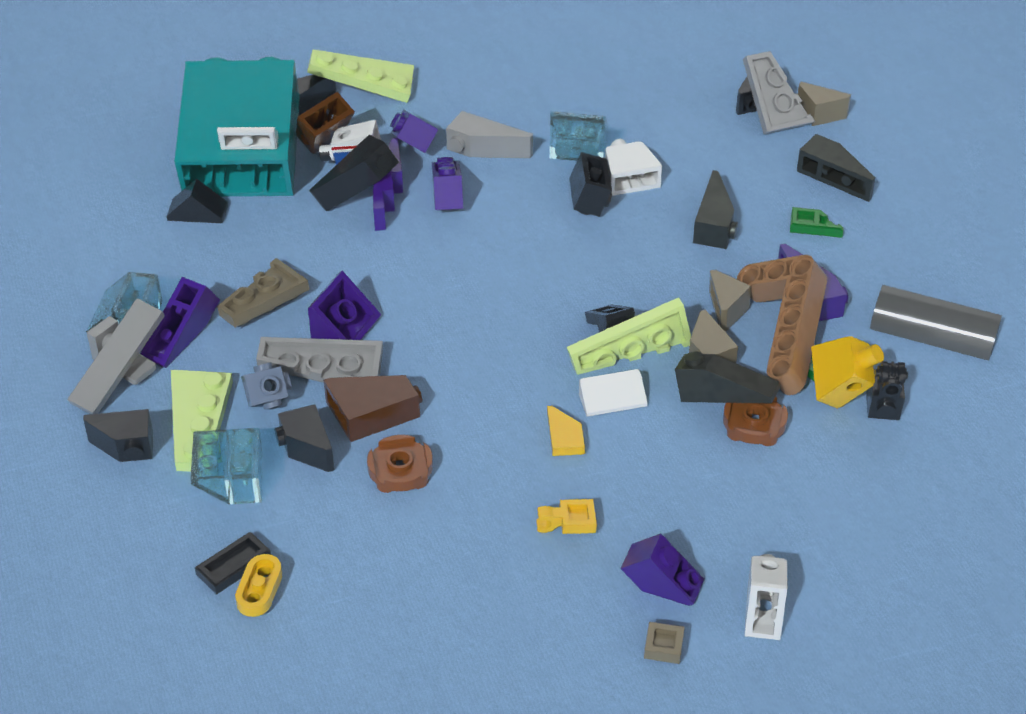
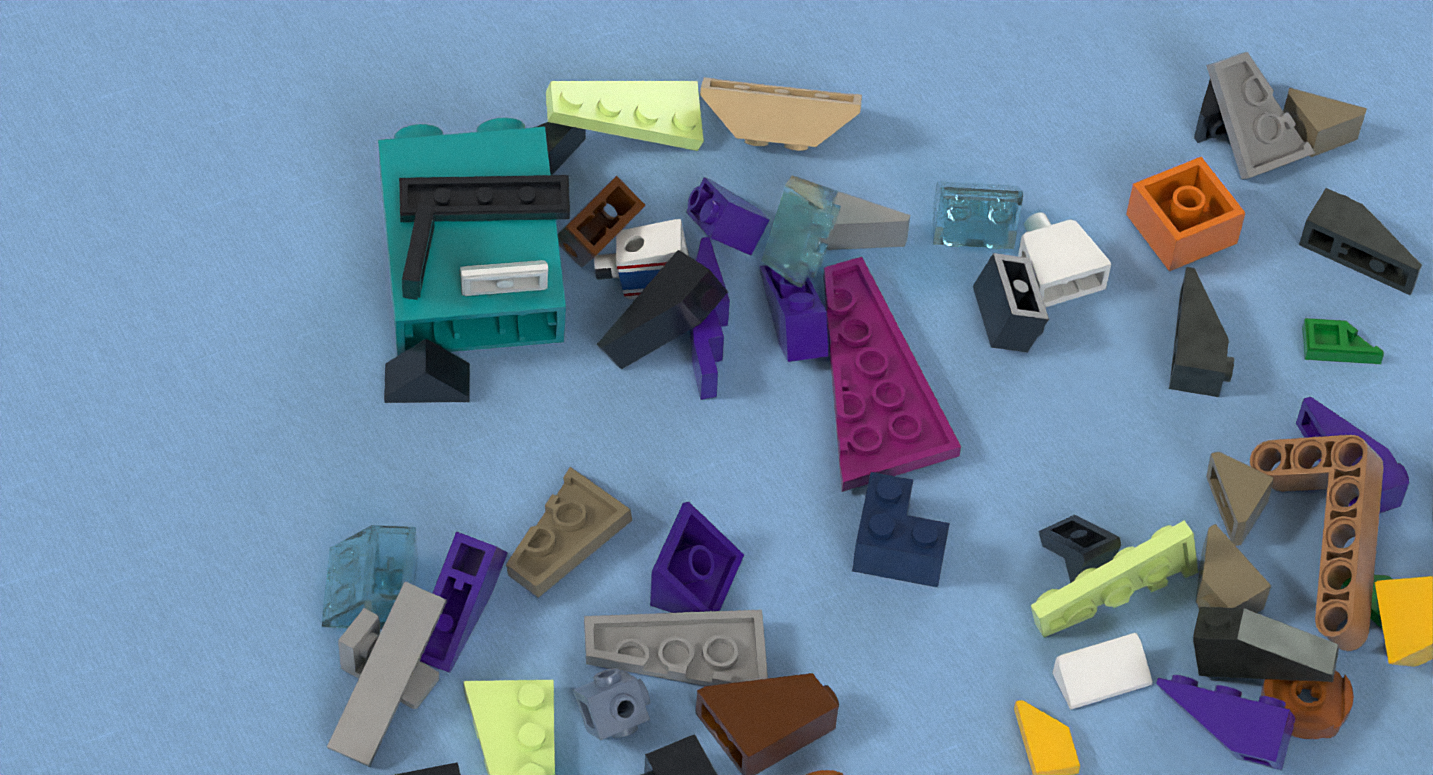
camera: 10 degrees left, 10 degrees up
(194, 119) = (418, 251): none -> black tile
(245, 95) = (487, 197): none -> black tile
(457, 133) = (801, 223): none -> clear light blue slope
(460, 79) = (778, 112): none -> tan wedge
(483, 308) = (892, 541): none -> dark blue brick
(493, 228) = (880, 395): none -> magenta wing
(705, 428) = (1245, 727): none -> dark purple slope
(718, 143) = (1185, 213): none -> orange brick

